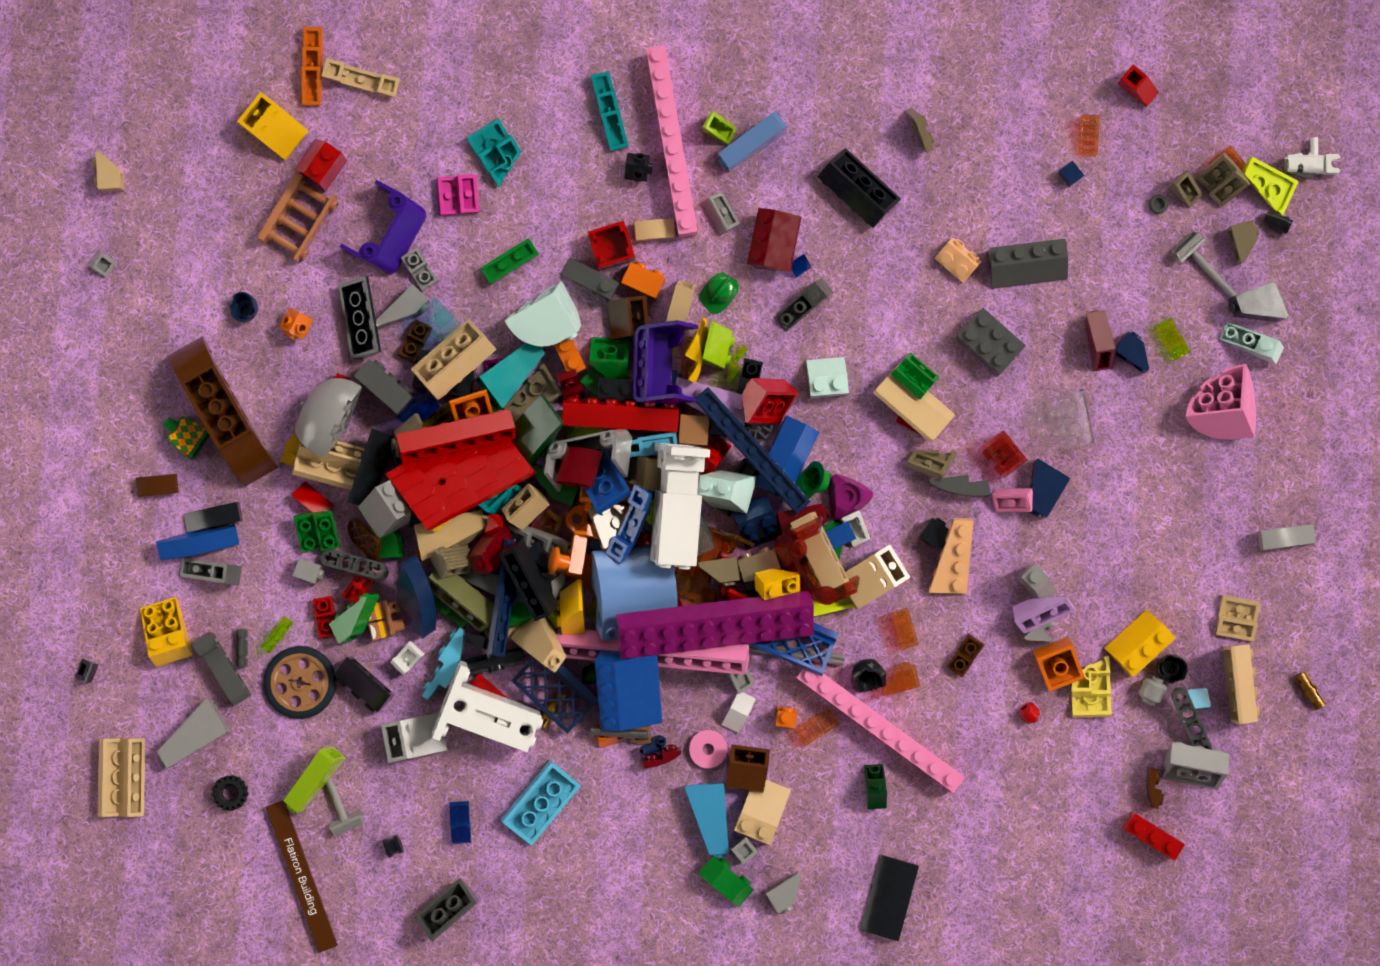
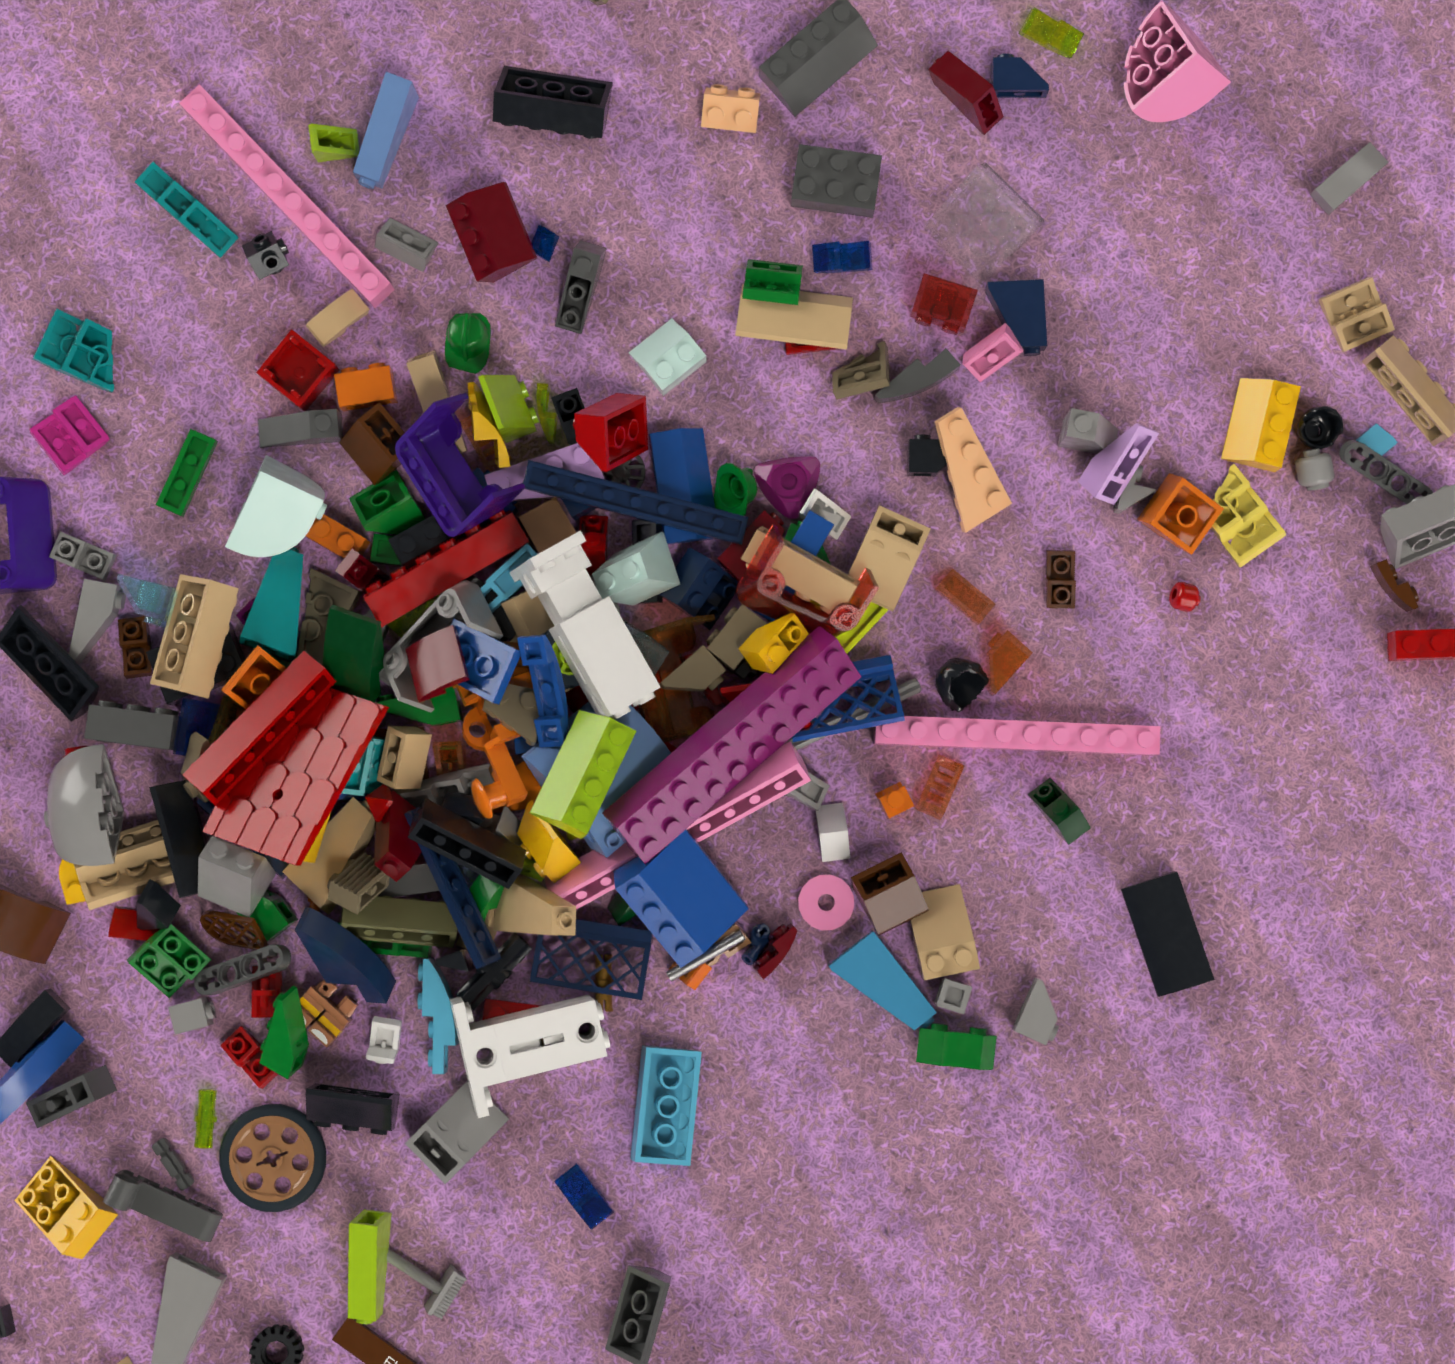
camera: 25 degrees left, 0 degrees up
(329, 498) = (155, 908): none -> black slope
(393, 846) = (520, 1281): black wheel -> none
(620, 584) = (582, 772): none -> lime slope
(964, 387) = (839, 257): none -> clear blue slope

